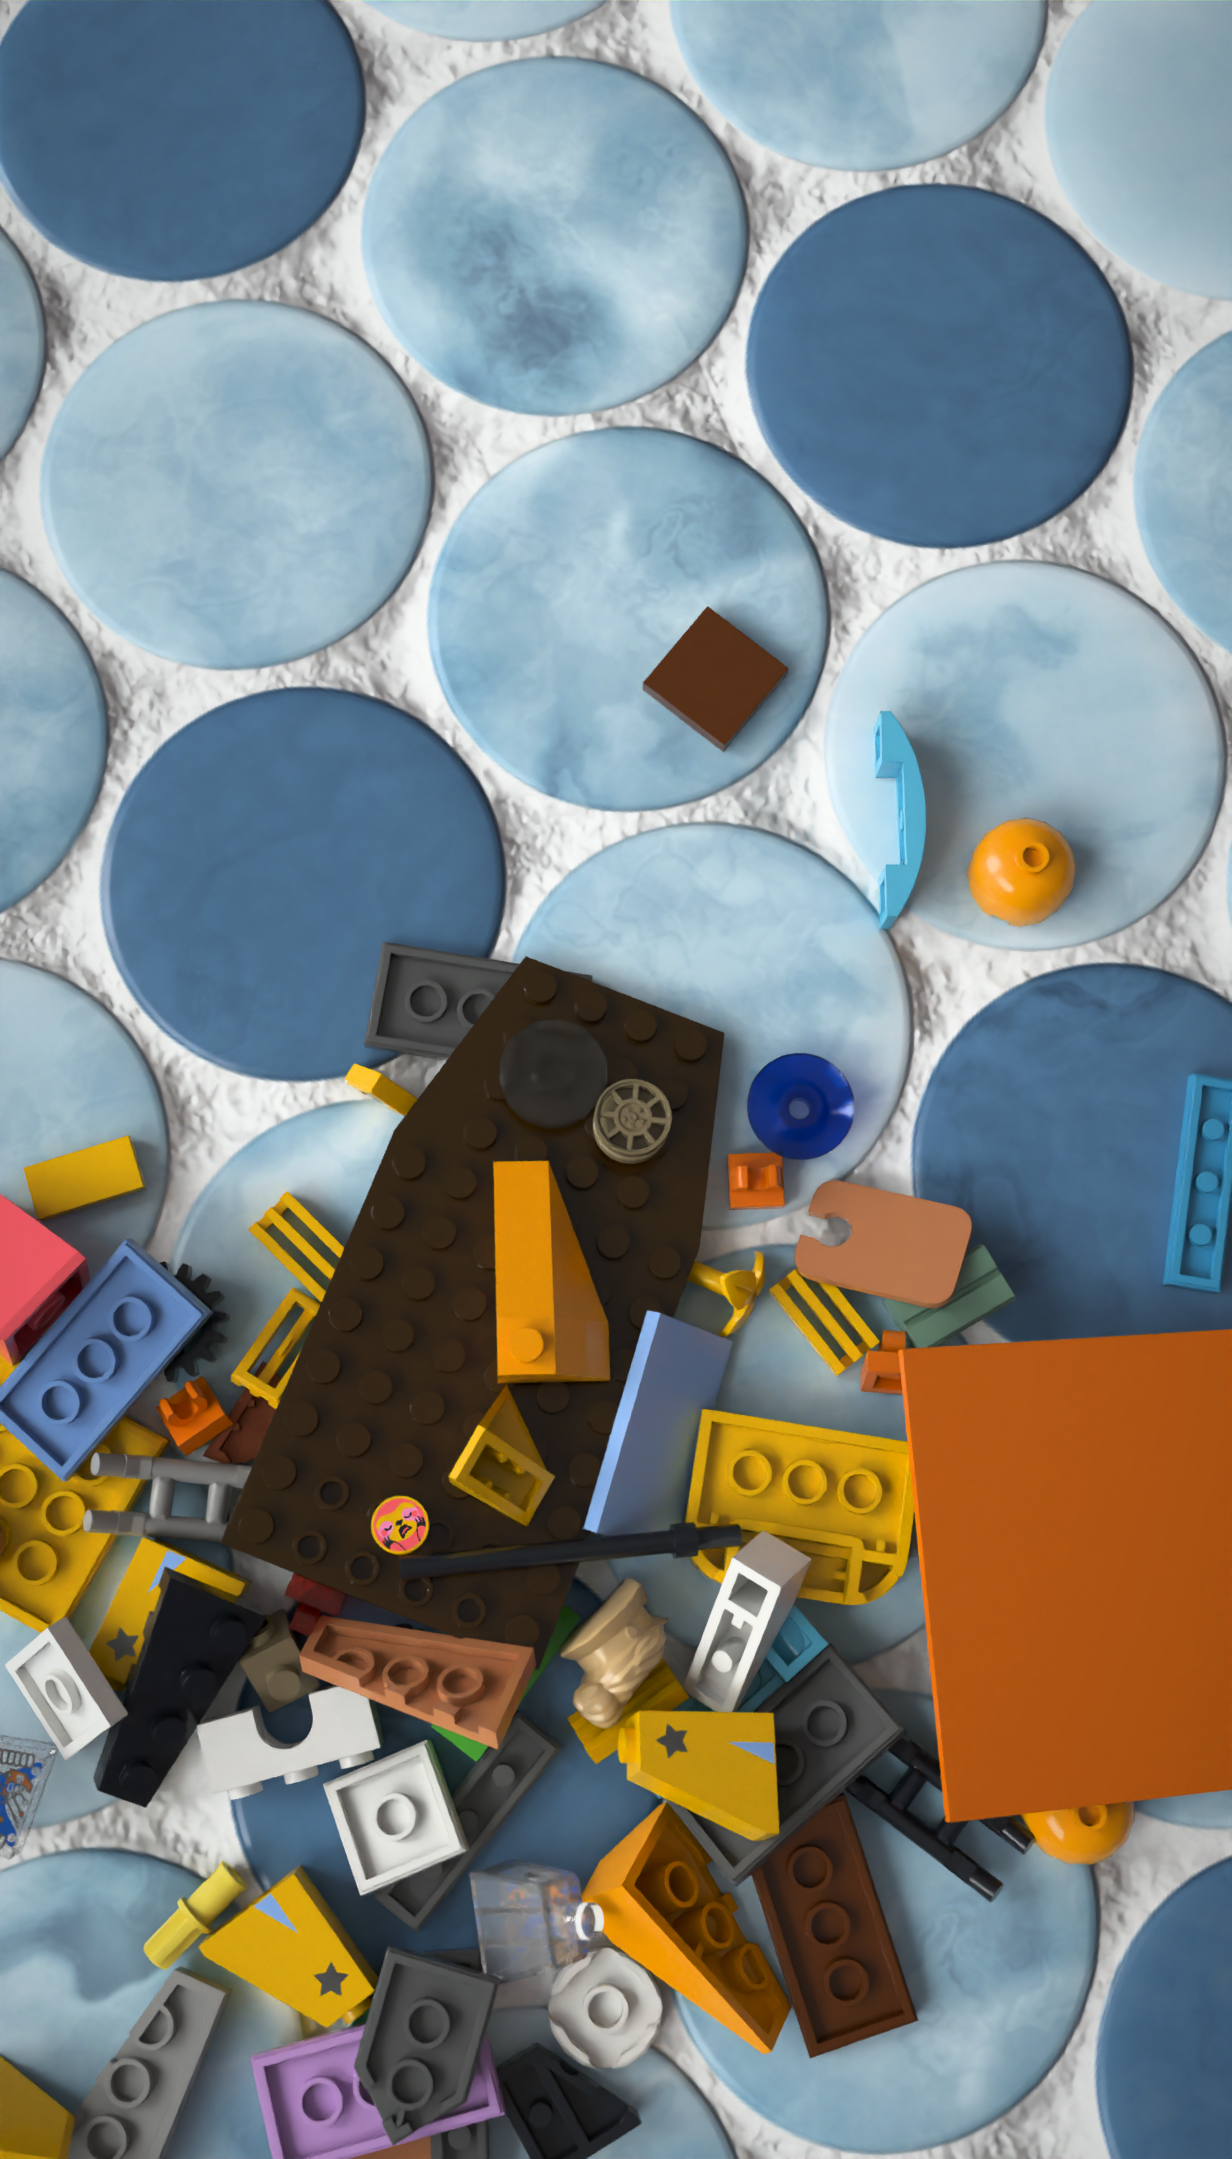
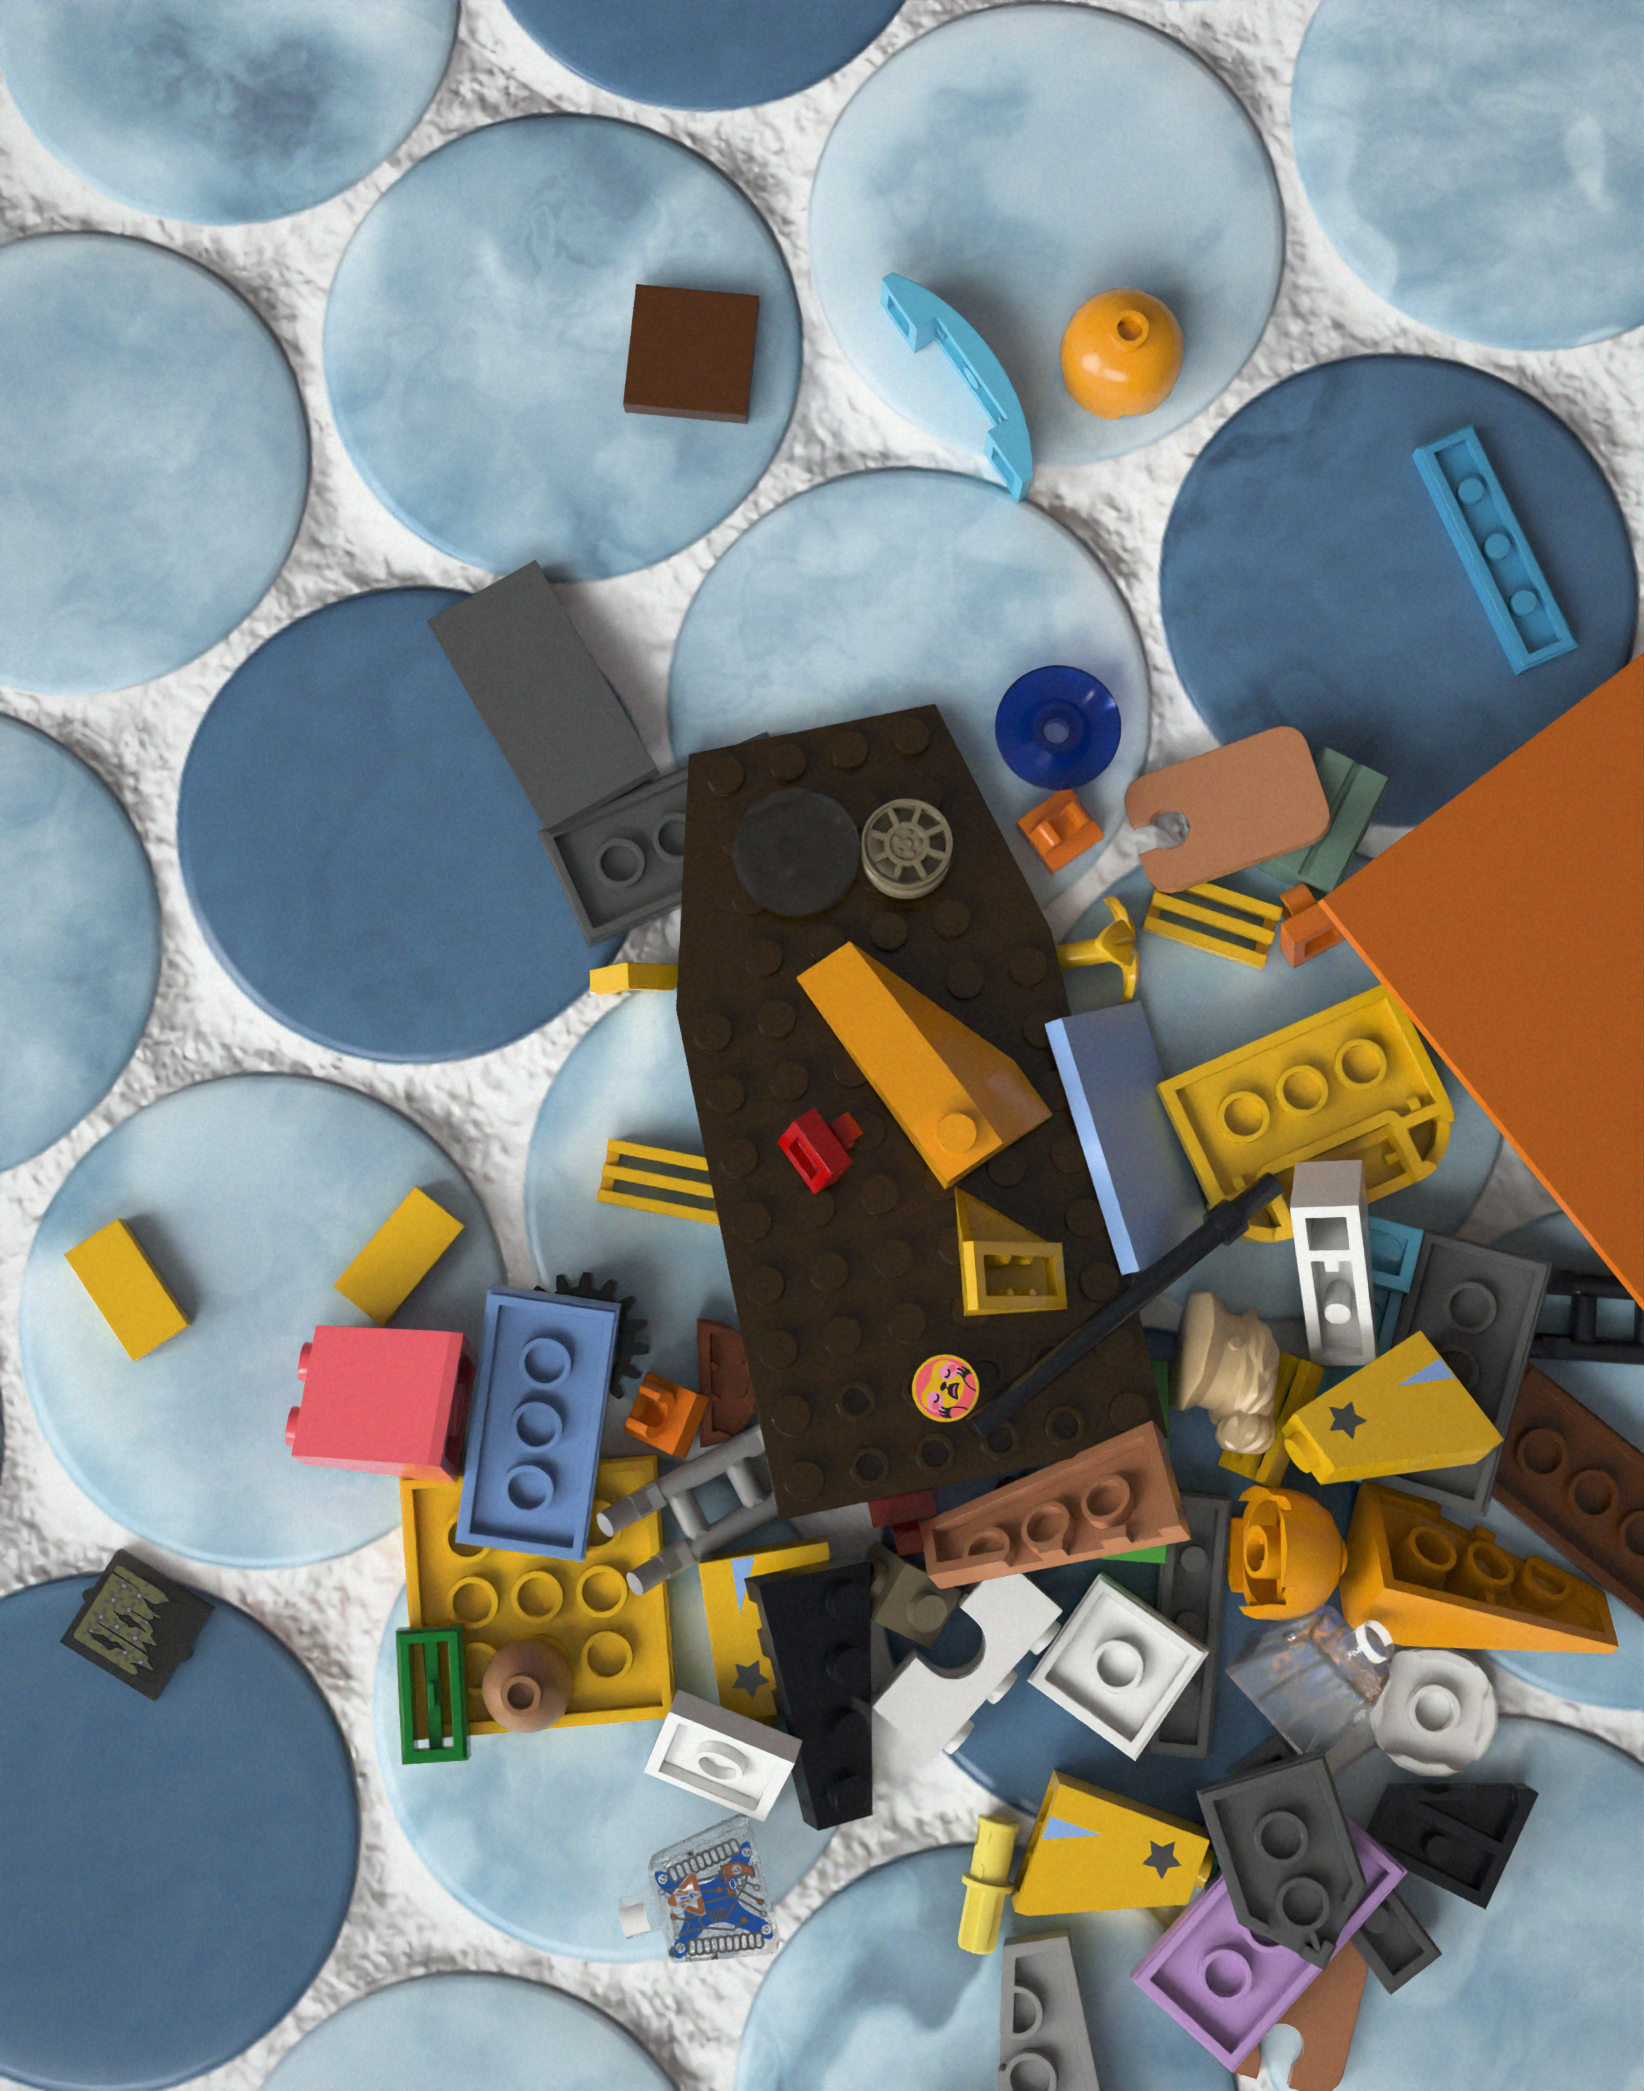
camera: 25 degrees left, 5 degrees up
(259, 1386) = (711, 1345): yellow tile -> none
(426, 1294) = (819, 1148): none -> red tile
(449, 851) = (543, 697): none -> dark grey tile
(570, 1815) = (1283, 1553): none -> light orange cylinder

